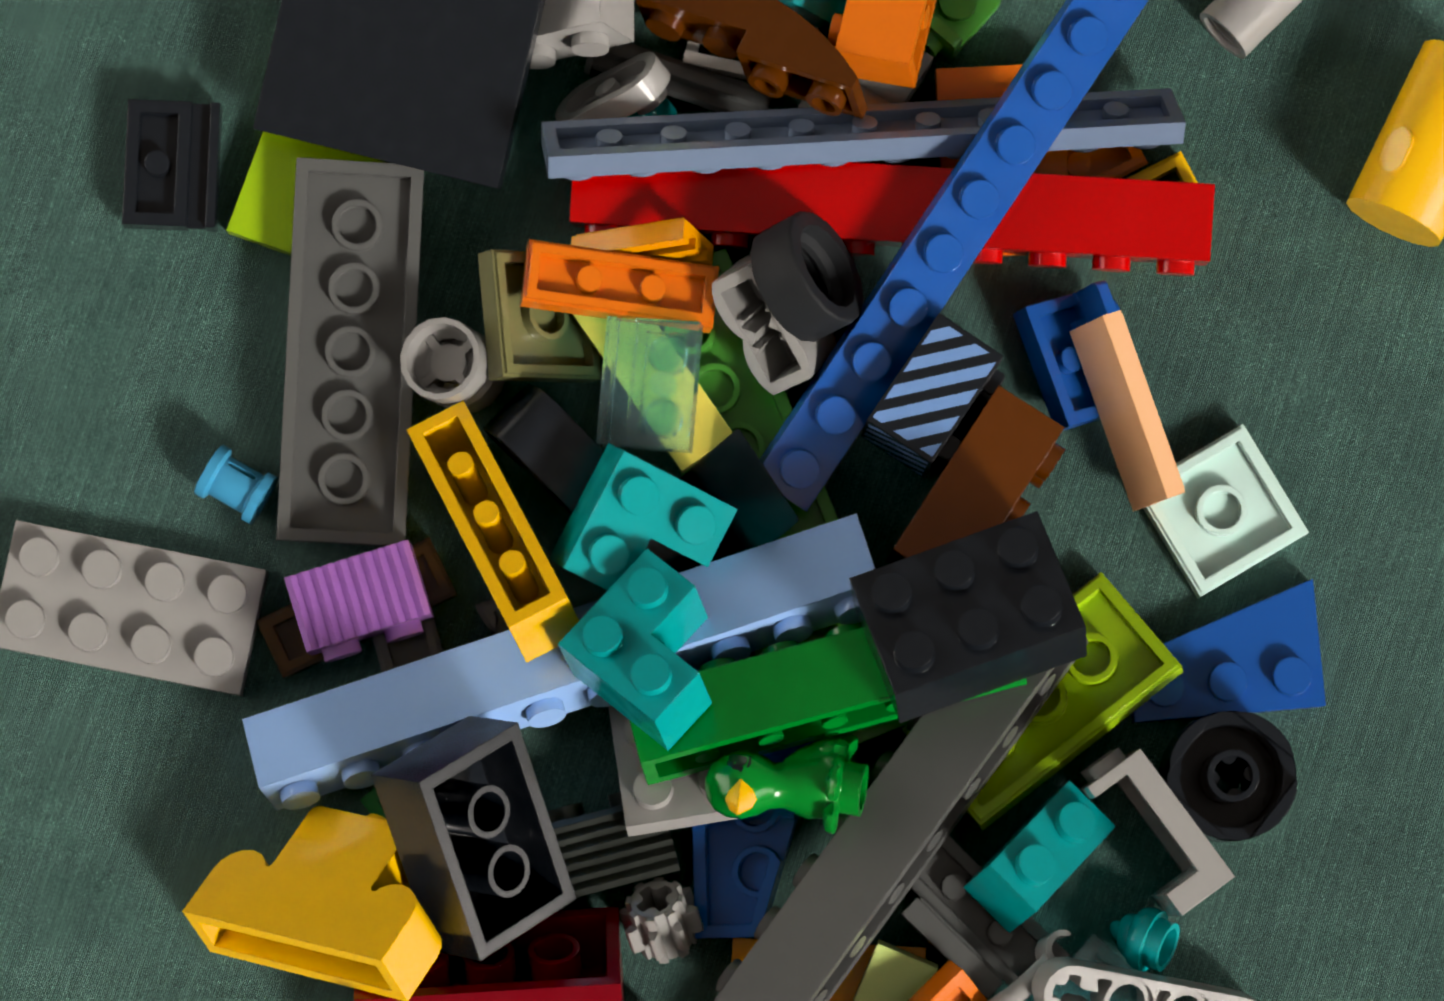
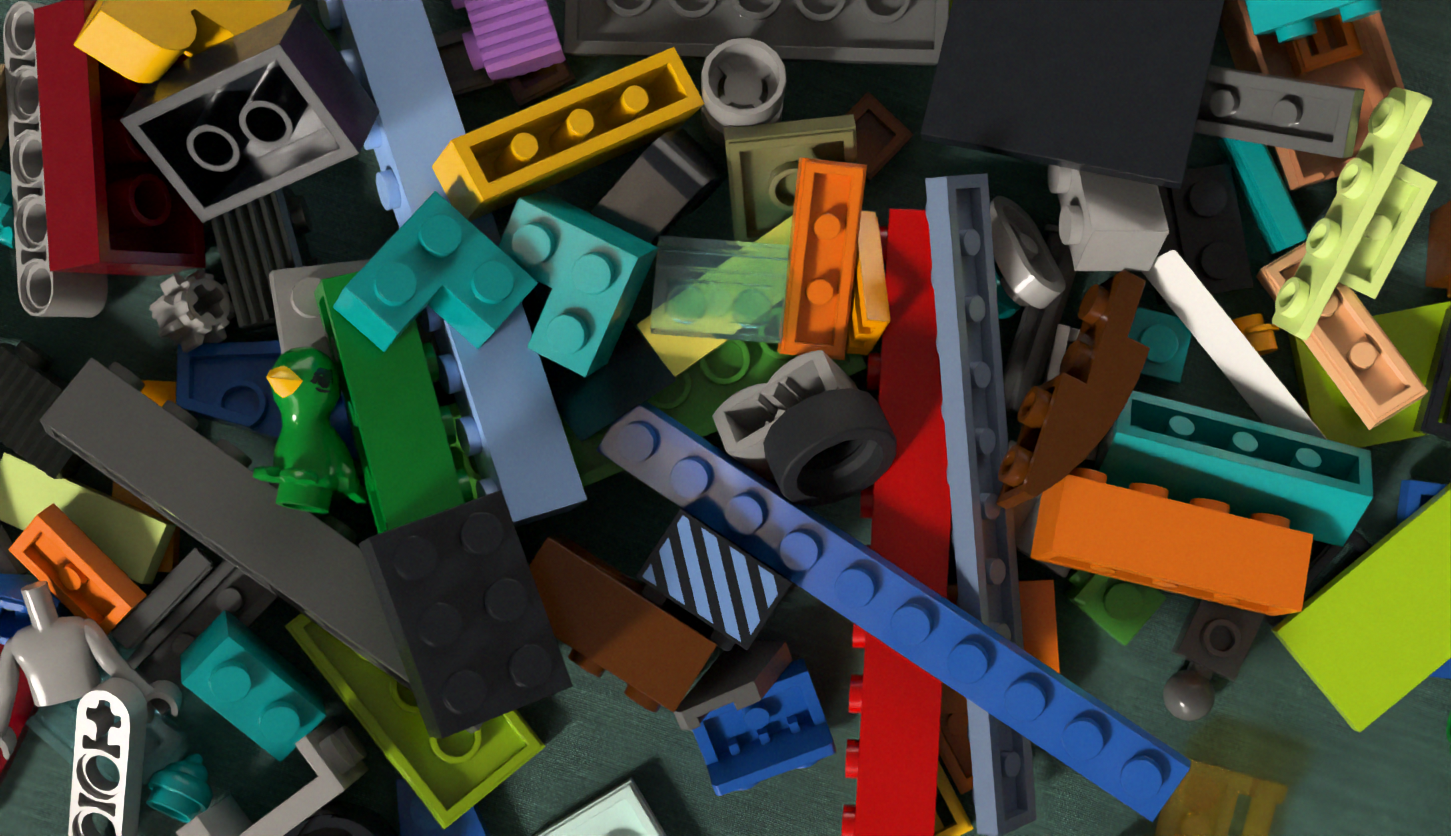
camera: 100 degrees right, 5 degrees up
(485, 232) = (877, 134): none -> reddish brown tile
(1032, 374) = (734, 677): none -> dark grey tile
(1127, 410) = (701, 775): light nougat tile -> none

